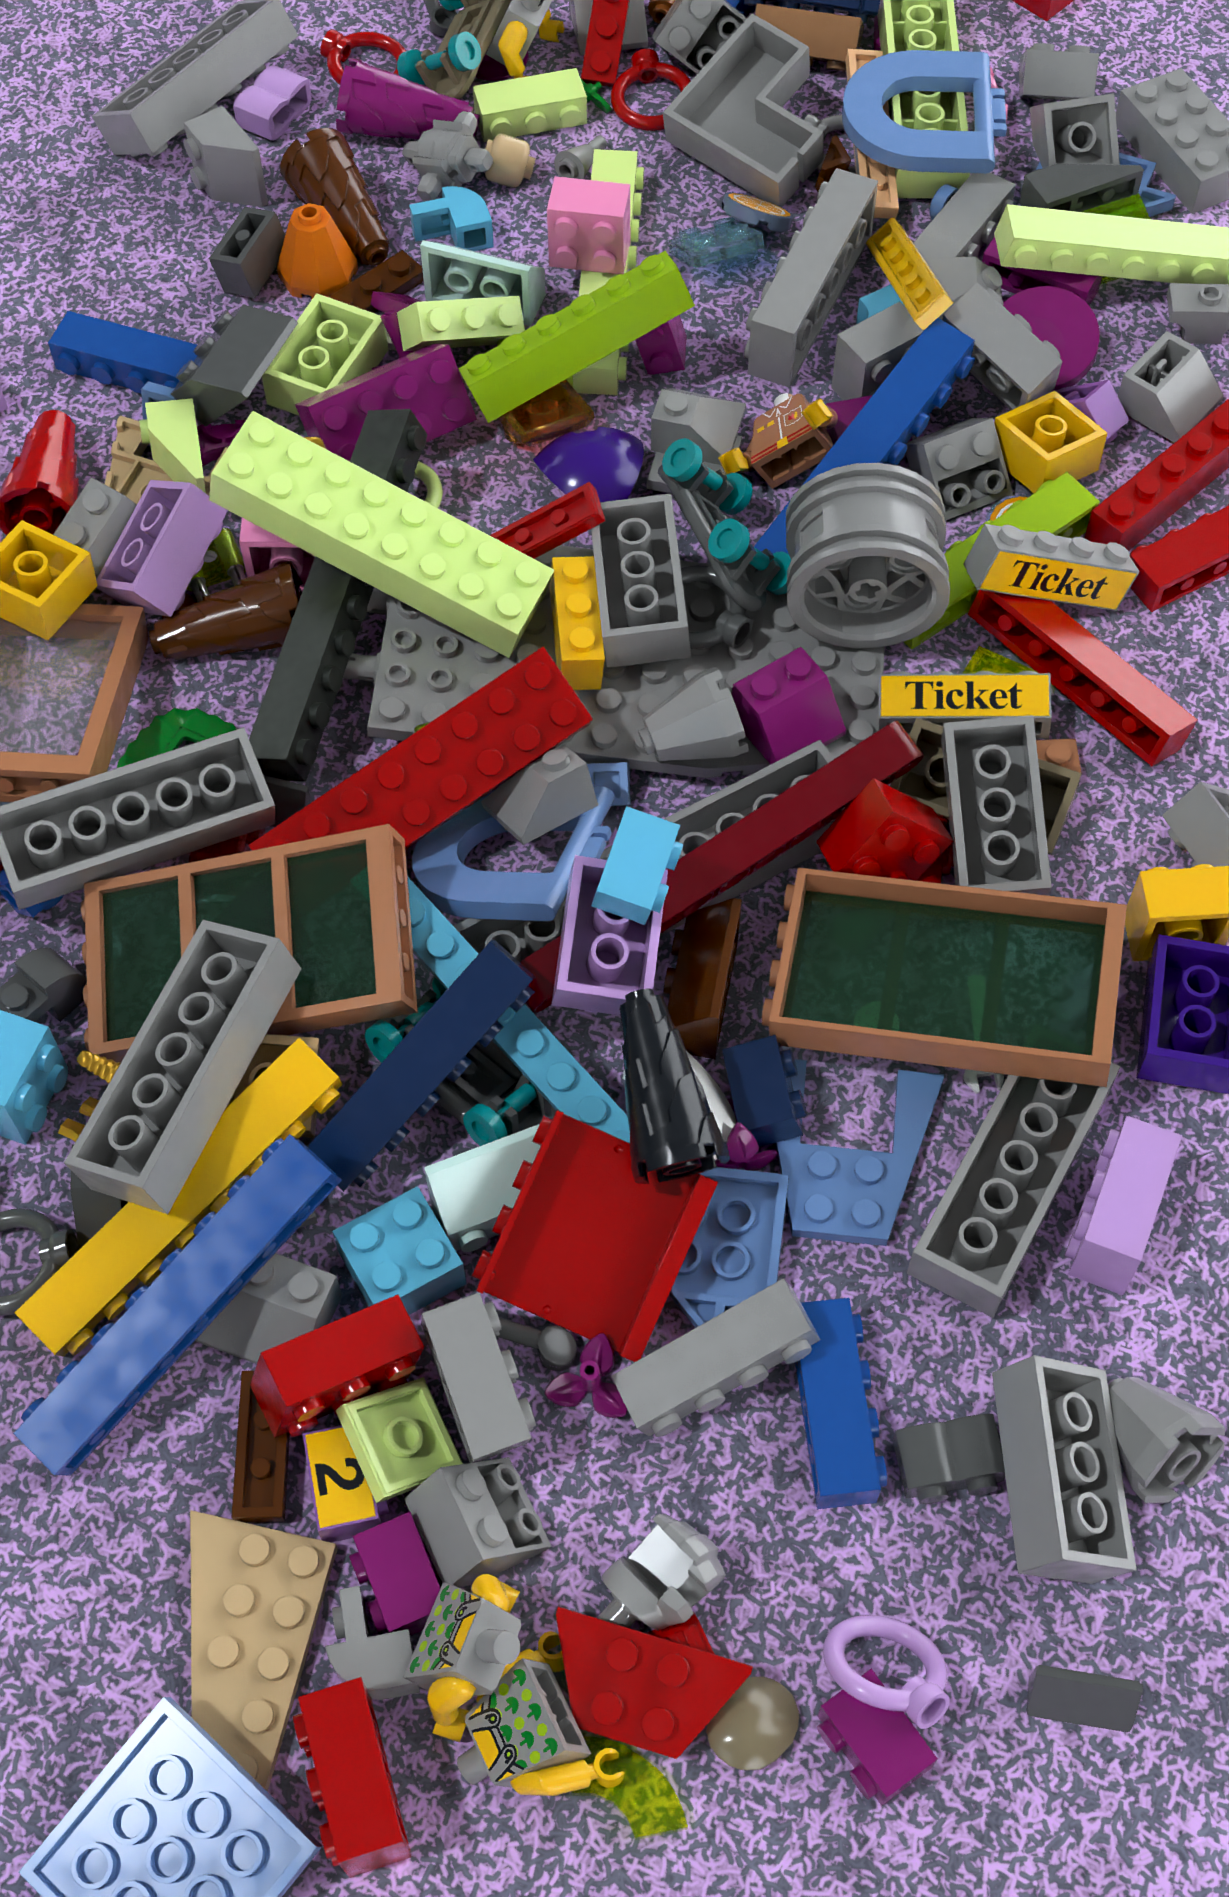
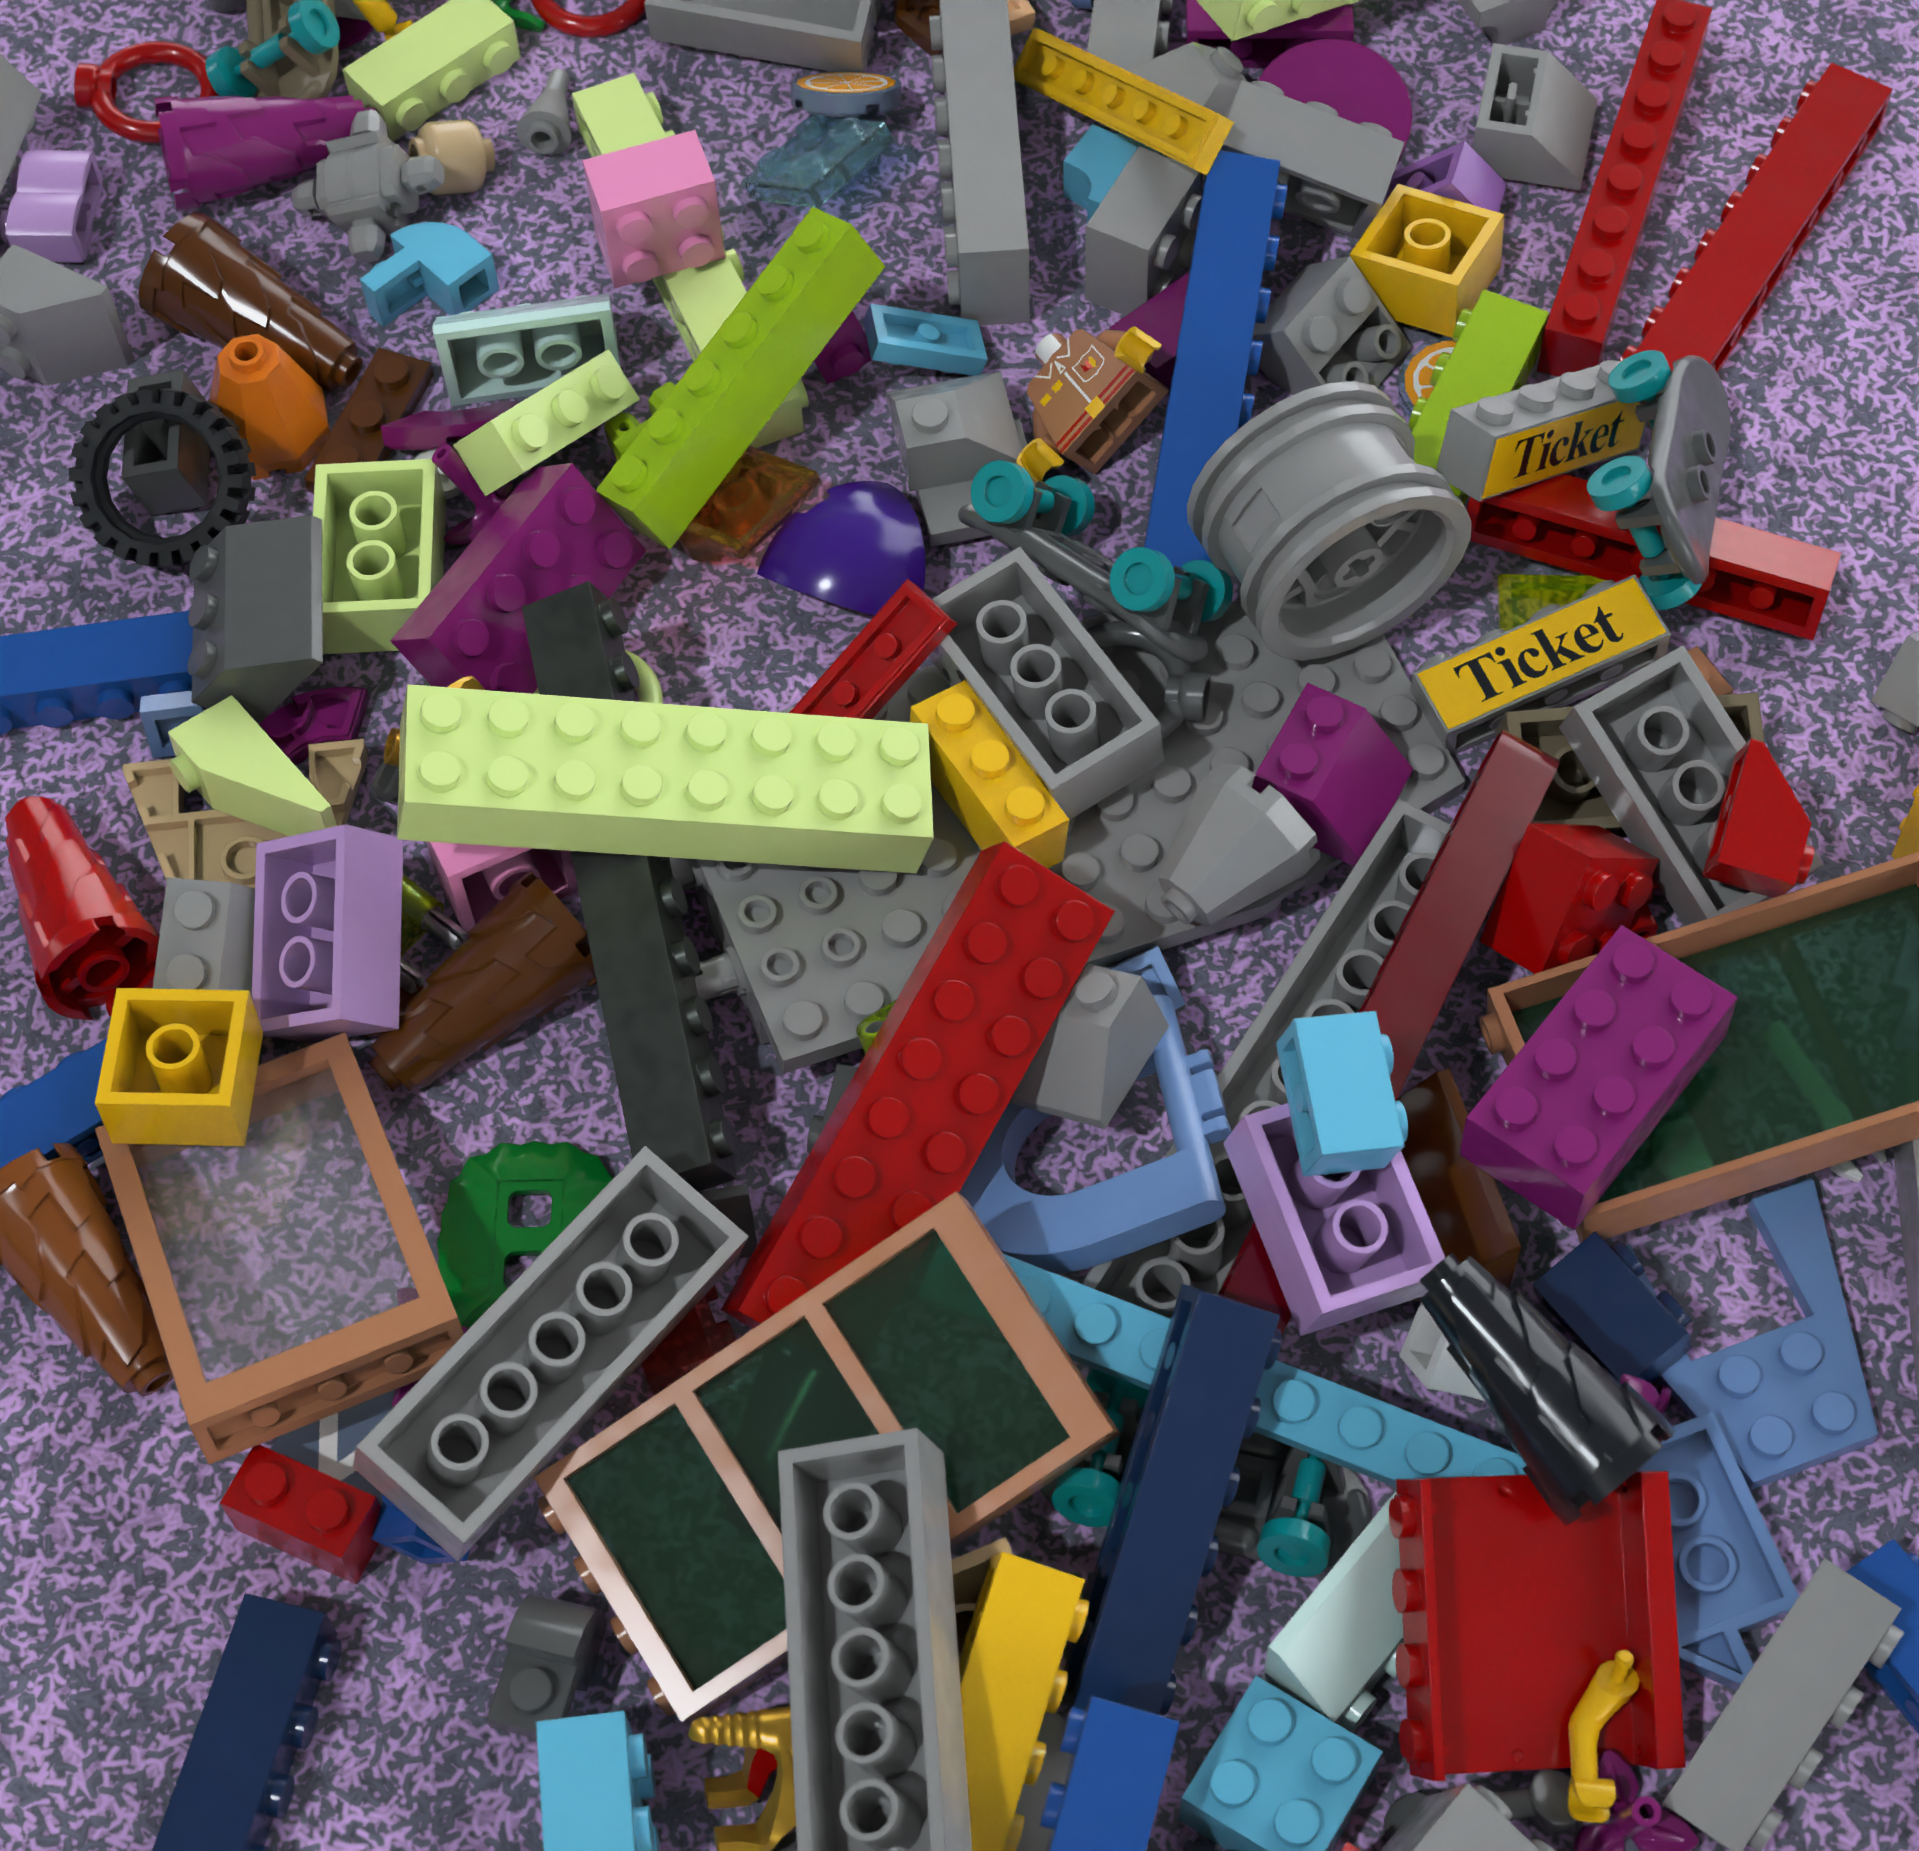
camera: 25 degrees left, 0 degrees up
(198, 246) = (93, 461): none -> black tyre
(617, 1300) = (1607, 1692): none -> yellow piece
(714, 368) = (924, 340): none -> medium azure plate
(820, 939) = (1597, 1076): none -> magenta brick
(1014, 844) = (1759, 828): none -> red slope
(1112, 622) = (1687, 459): none -> dark grey piece

